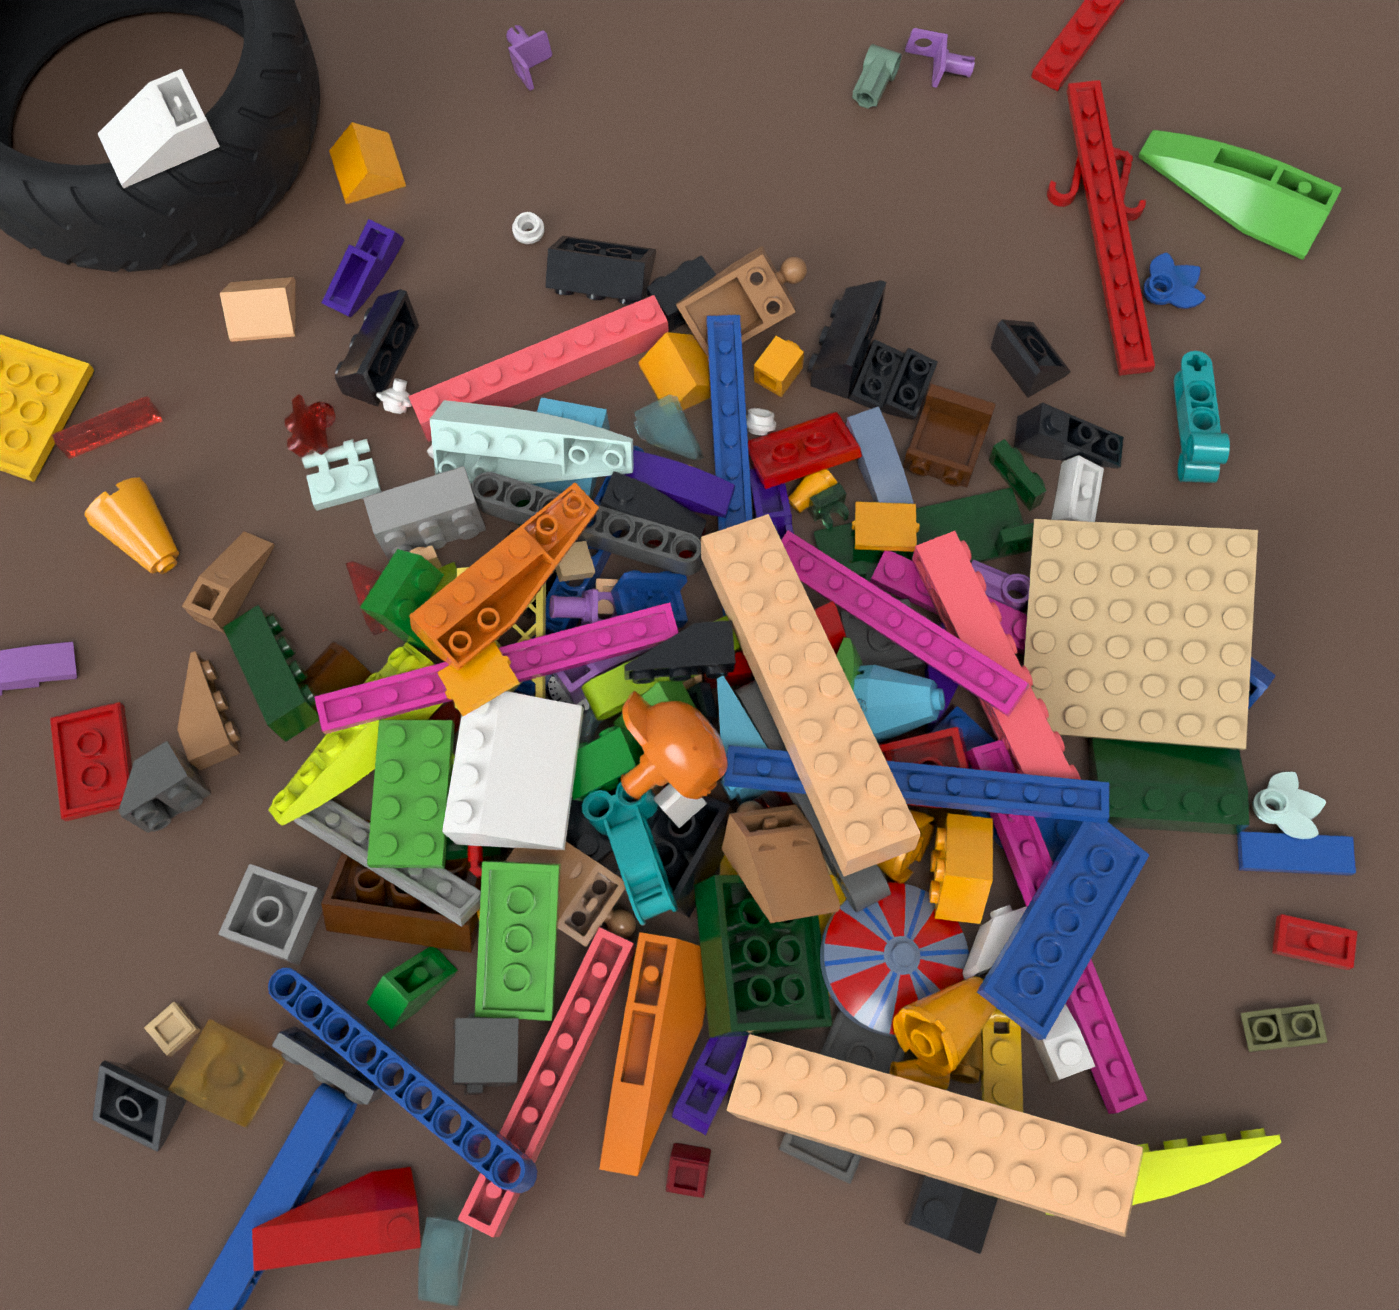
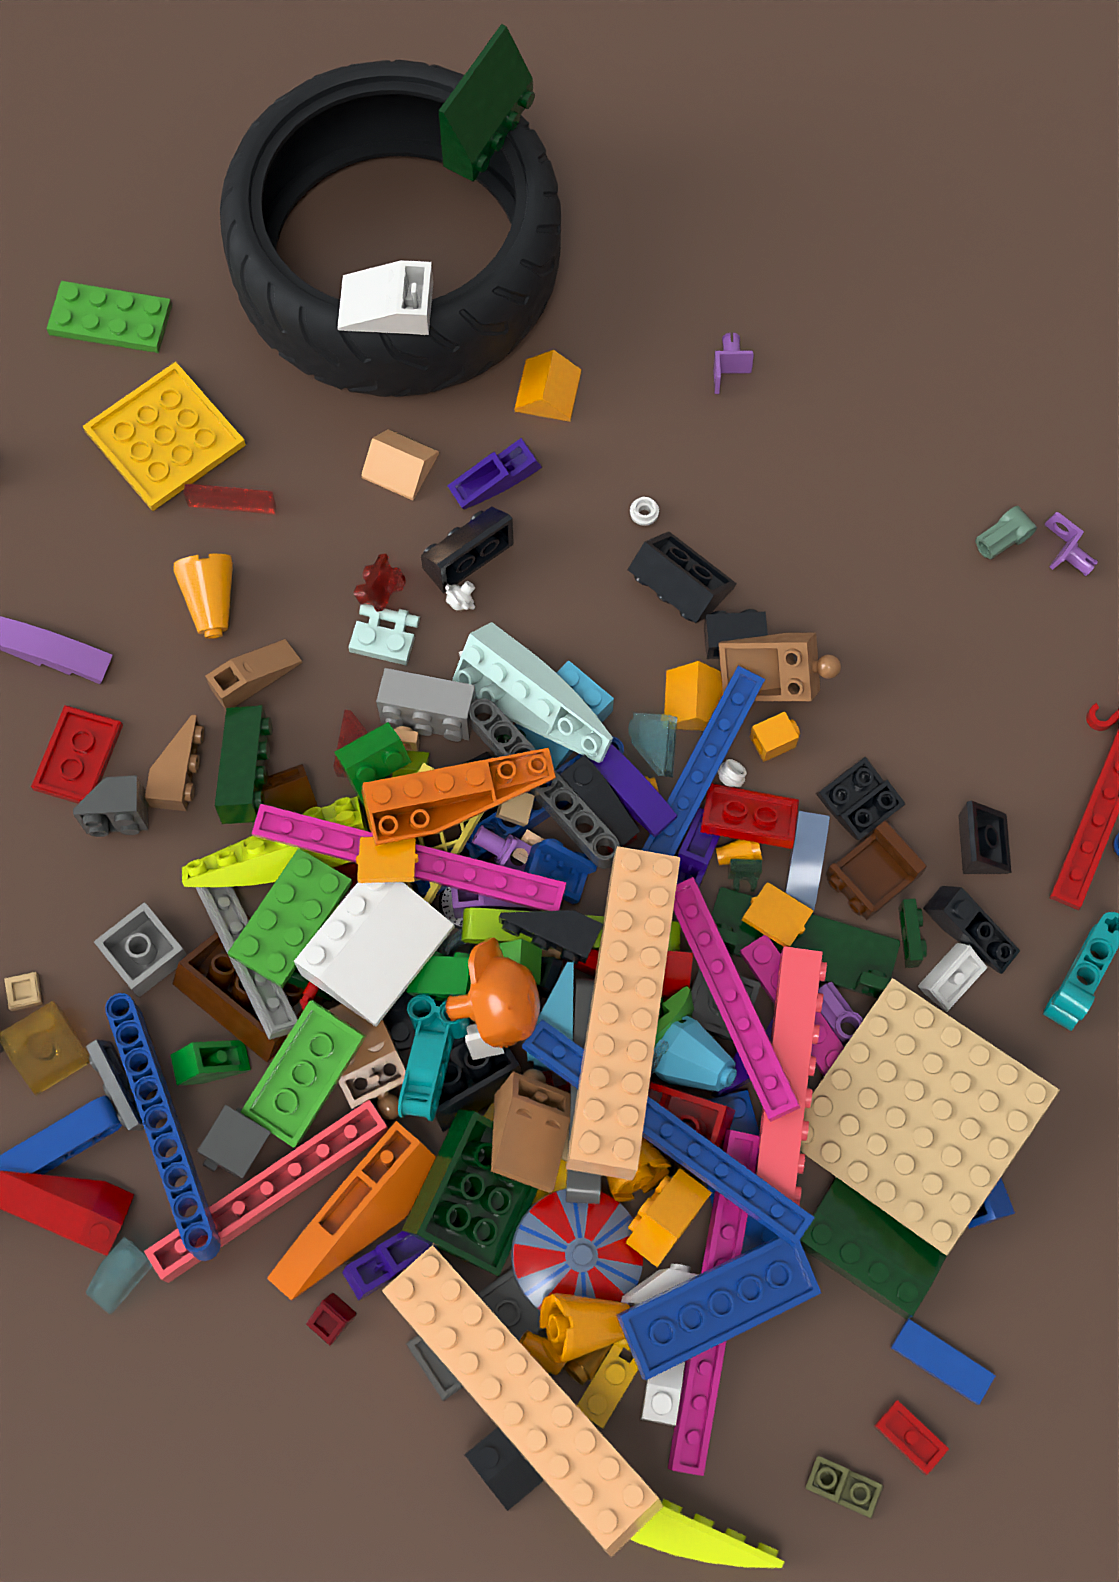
camera: 25 degrees right, 0 degrees up
(550, 362) = (593, 633): coral brick -> none
(847, 338) = (842, 745): black slope -> none
(1293, 806) = (964, 1324): light aqua plate -> none

